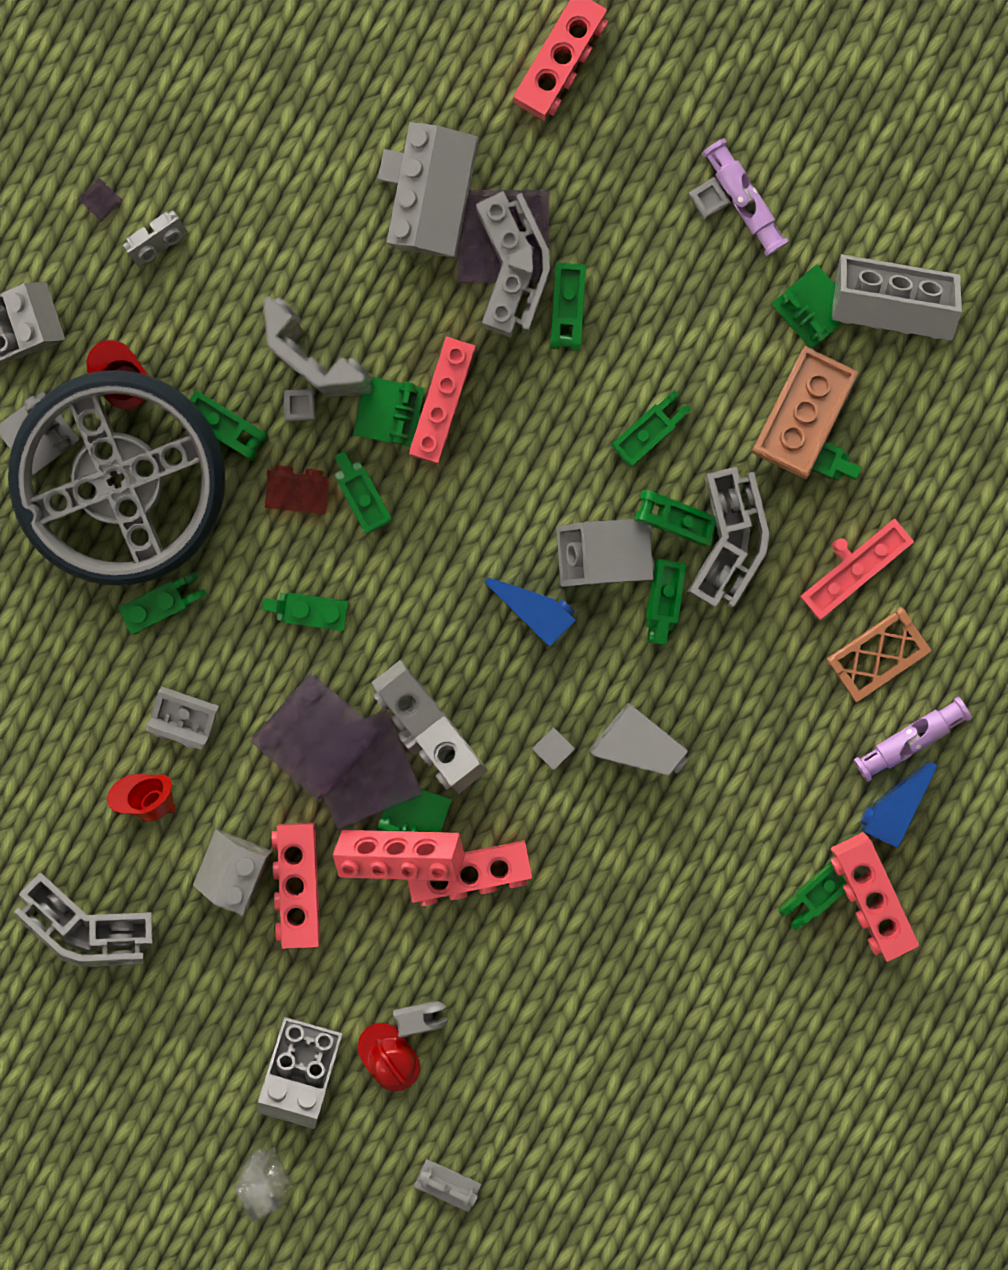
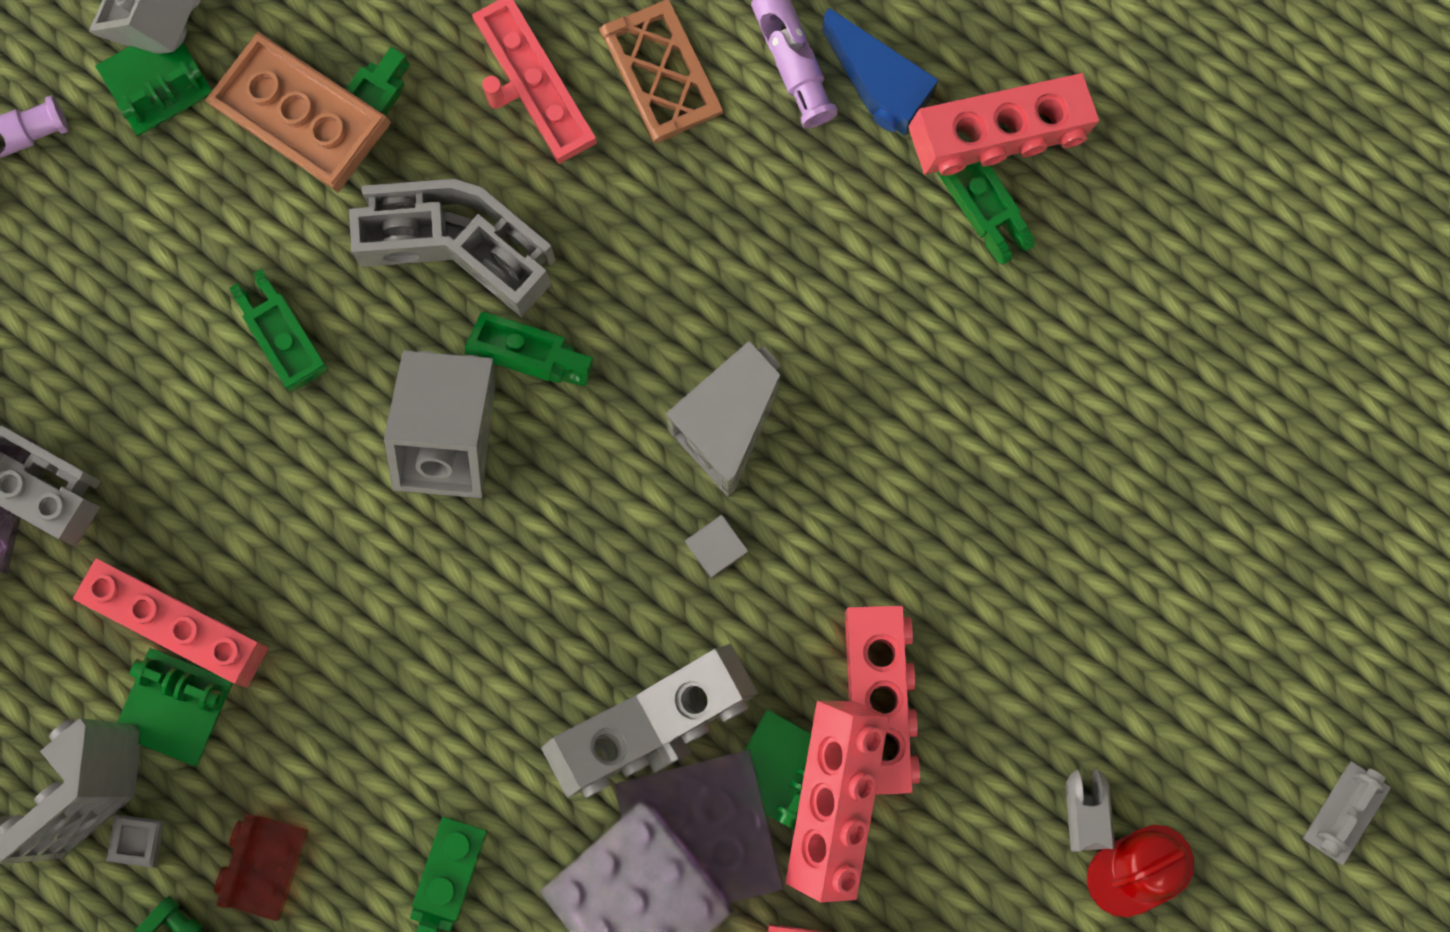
camera: 80 degrees left, 10 degrees down
(361, 494) = (286, 768): green hinge -> none
(538, 611) = (509, 535): blue slope -> none
(568, 305) = (73, 418): green plate -> none
(676, 518) = (410, 312): green plate -> none

